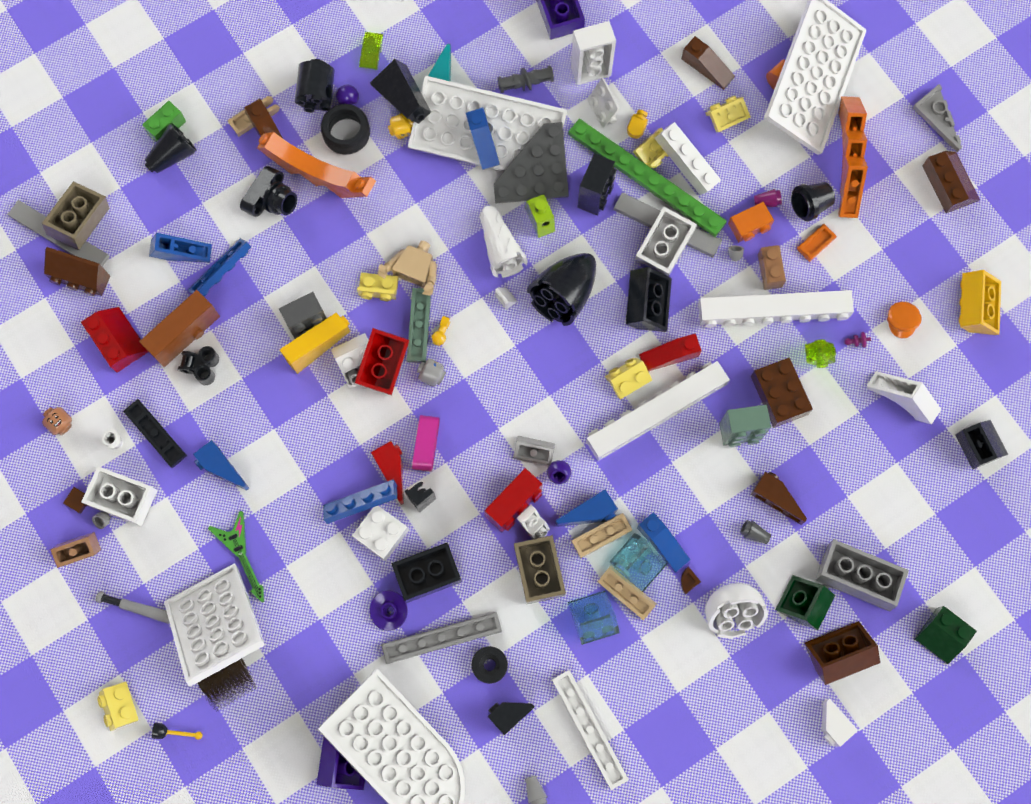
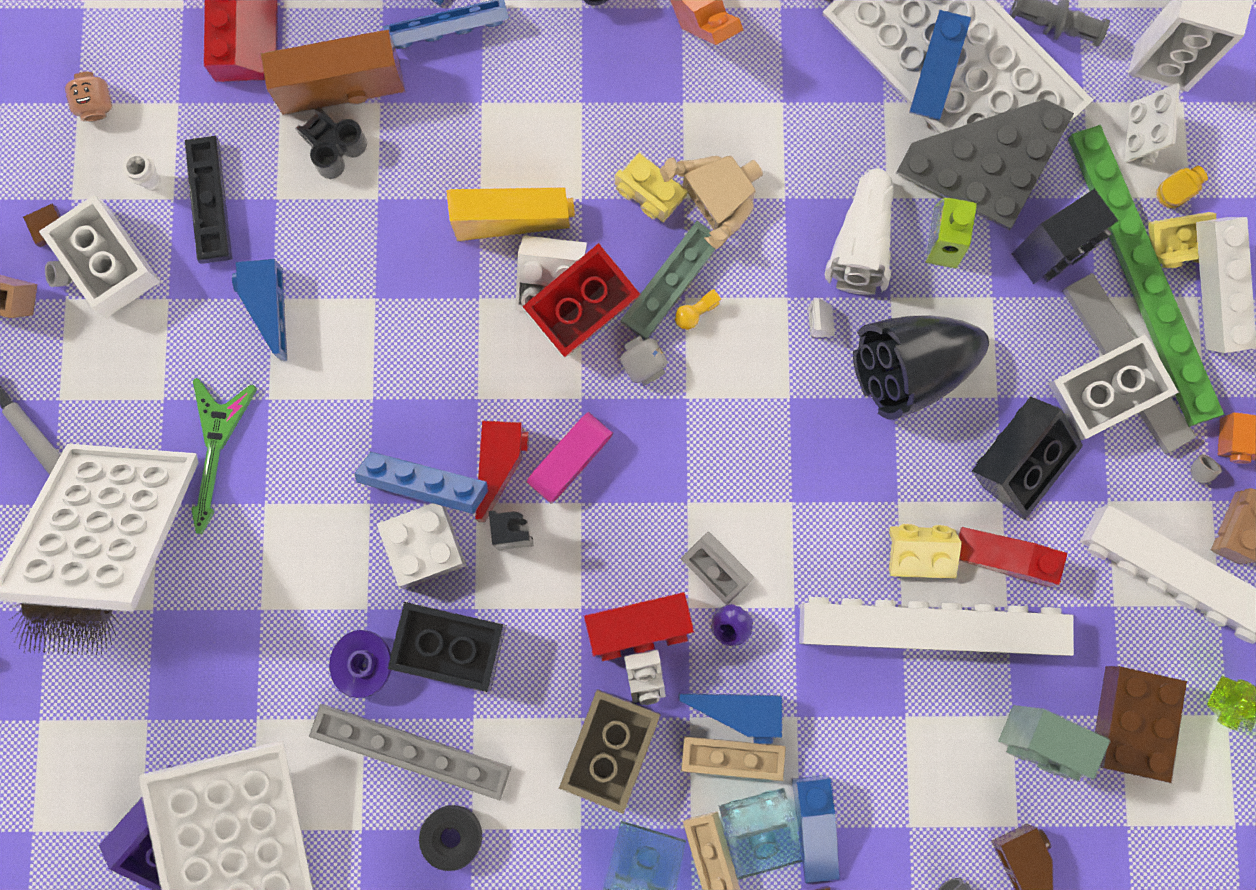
camera: 30 degrees right, 5 degrees up
(302, 314) = (515, 160): dark grey brick -> none

